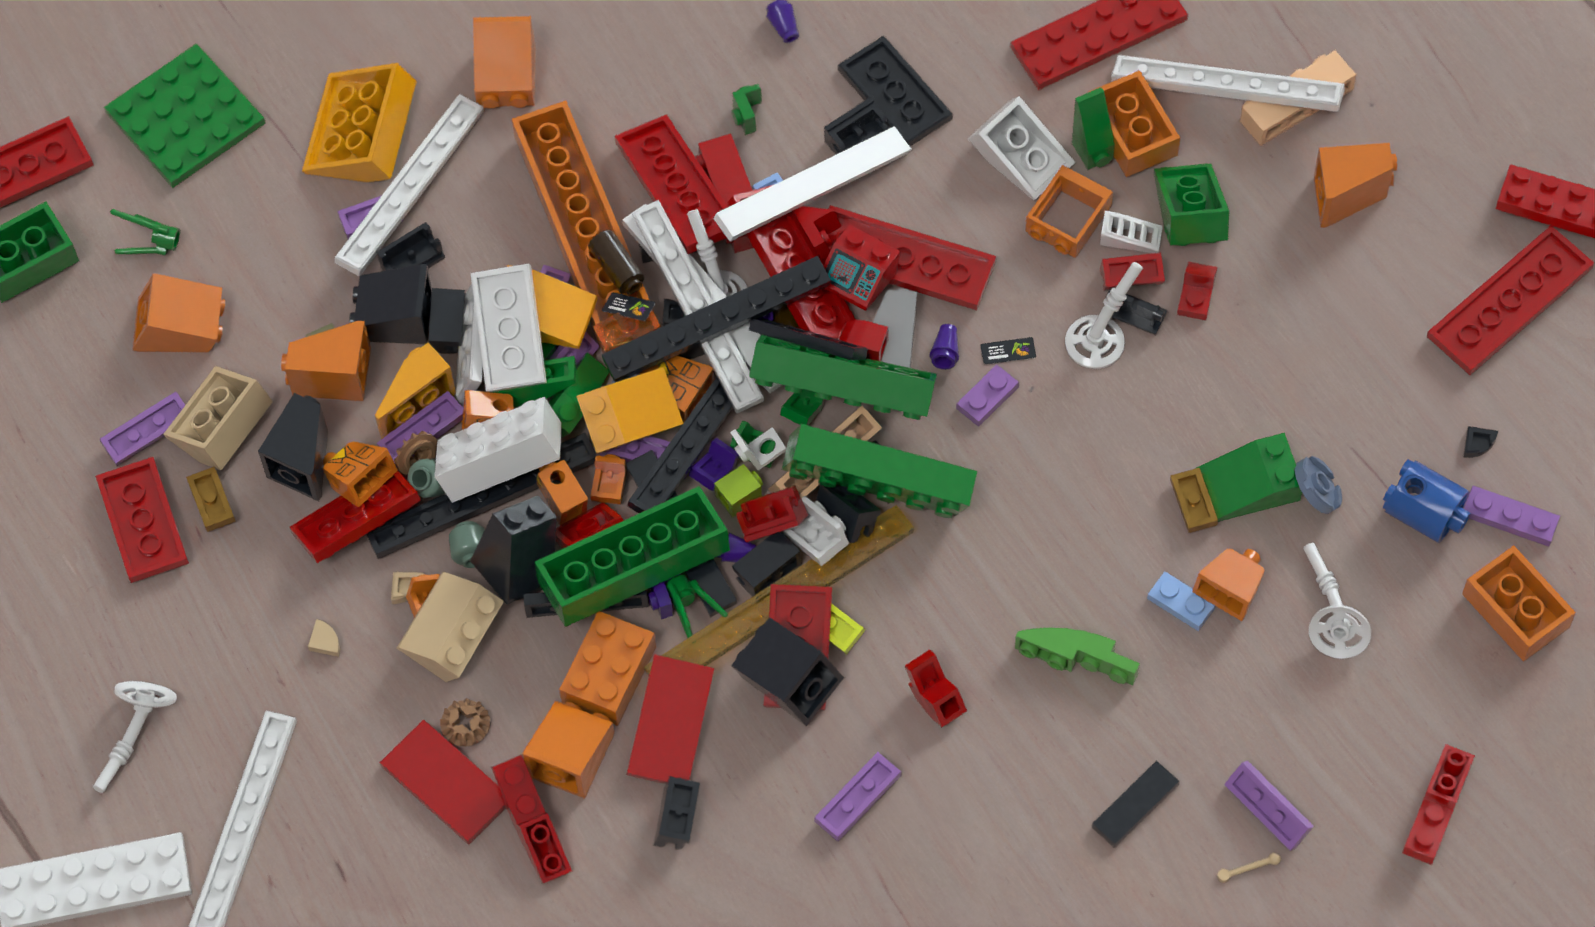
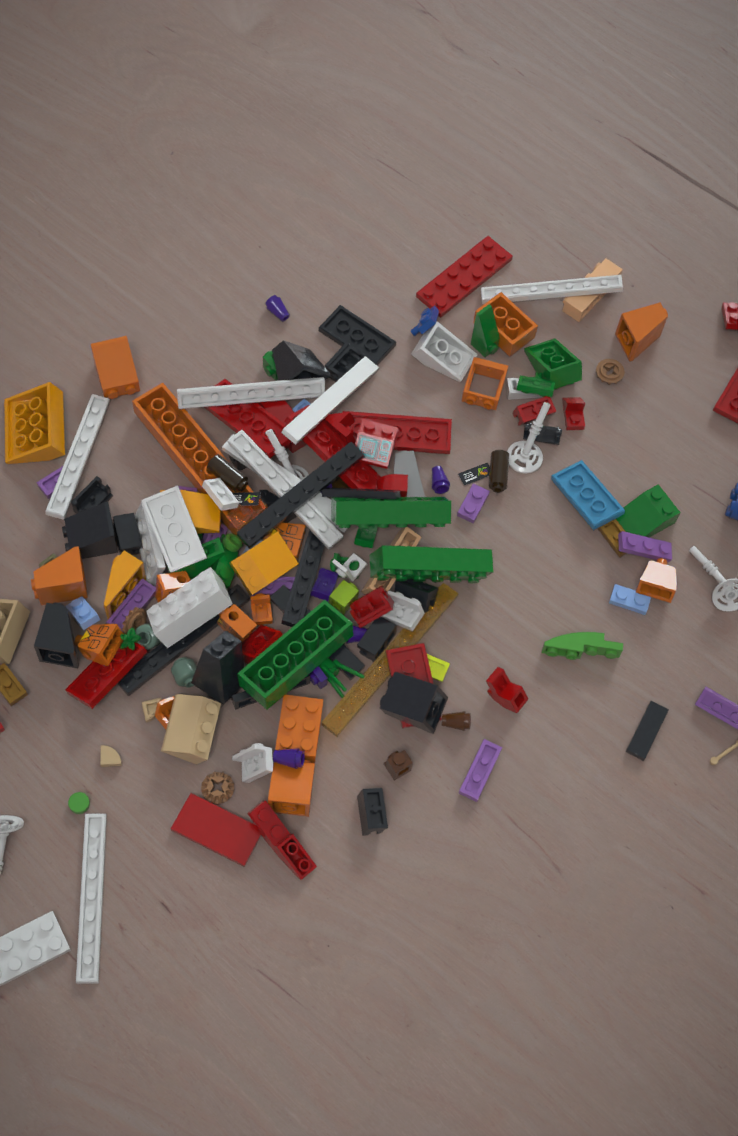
camera: 25 degrees left, 0 degrees up
(262, 693) = (79, 803): none -> bright green tile
(346, 421) = (82, 613): none -> light blue plate
(400, 475) = (129, 639): none -> green plant
(528, 698) = (255, 762): none -> white bracket
(578, 704) = (289, 757): none -> dark purple cone
(594, 291) = (220, 494): none -> white plate
(595, 369) = (232, 542): none -> bright green tile
(670, 720) = (349, 752): red tile -> none
(692, 146) = (250, 392): none -> white tile
(737, 751) = (398, 764): none -> reddish brown brick
(780, 122) = (297, 362): none -> black slope
(850, 716) = (457, 720): none -> reddish brown cone
(1009, 90) = (427, 320): none -> blue plate
(1043, 354) = (499, 471): none -> dark brown brick
(1145, 232) = (536, 385): none -> green plate
(1170, 423) = (587, 495): none -> dark azure tile
(1231, 525) = (644, 546): none -> medium lavender plate
(1281, 225) = (607, 365): none -> medium nougat gear
(1316, 484) = (685, 509): sand blue tile -> none

